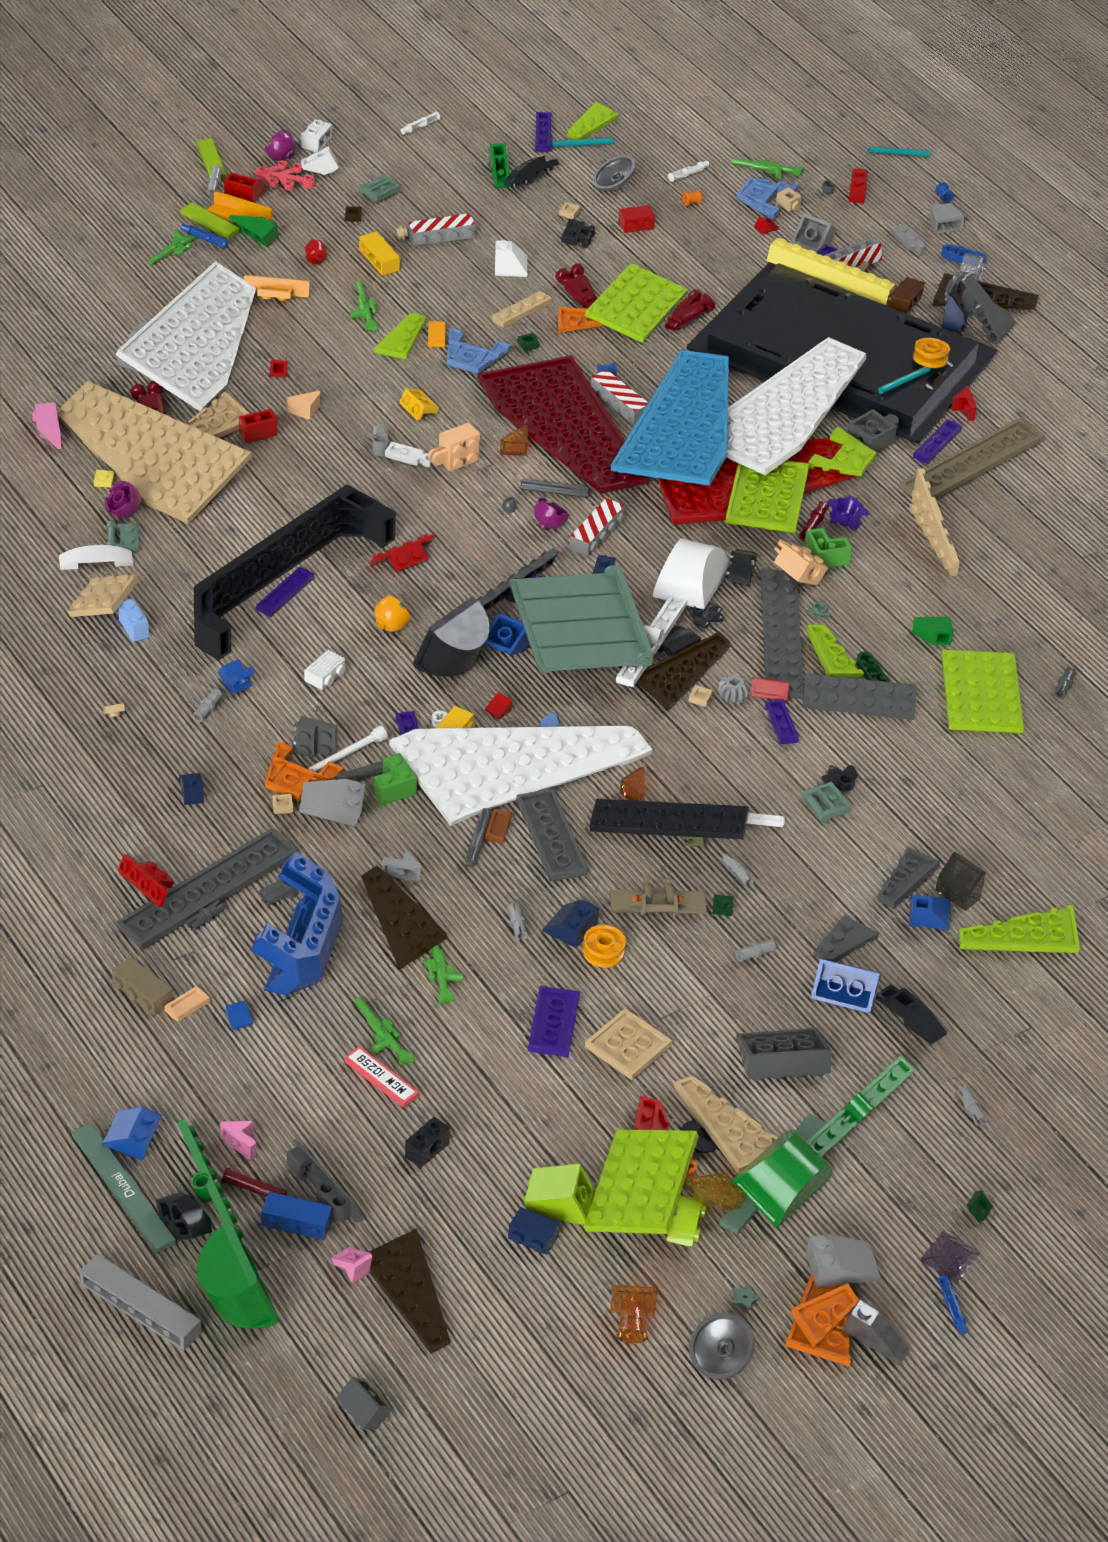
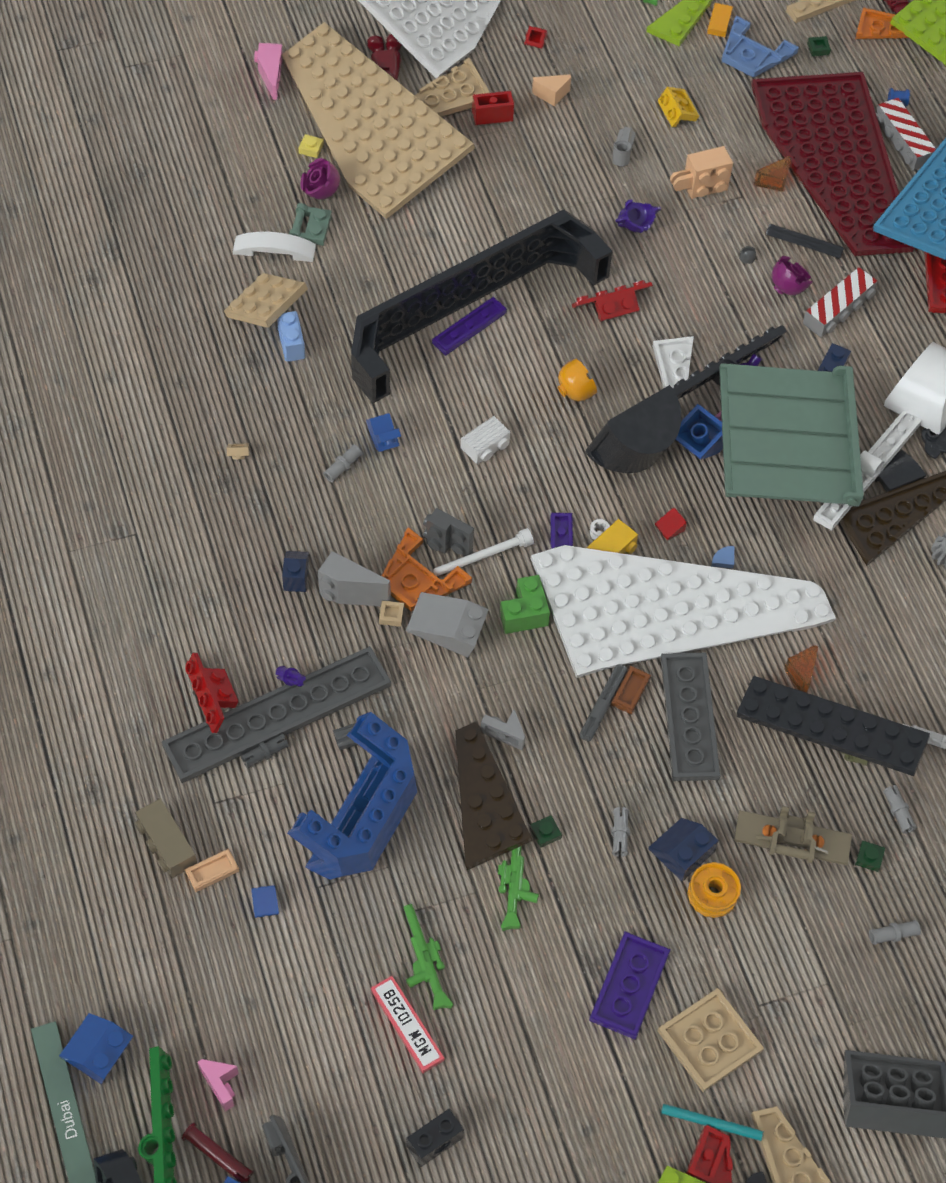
camera: 15 degrees right, 15 degrees up
(212, 857) = (290, 676): none -> dark purple axle
(244, 784) = (351, 583): none -> light grey slope
(362, 772) = (492, 586): dark grey axle -> none
(407, 454) = (648, 170): white plate -> none
(407, 488) = (637, 216): none -> dark purple hair
(456, 932) = (545, 831): none -> dark green plate
(466, 585) = (673, 359): none -> white wing
(654, 1094) = (712, 1122): none -> teal bar
(700, 695) = (909, 553): tan plate -> none

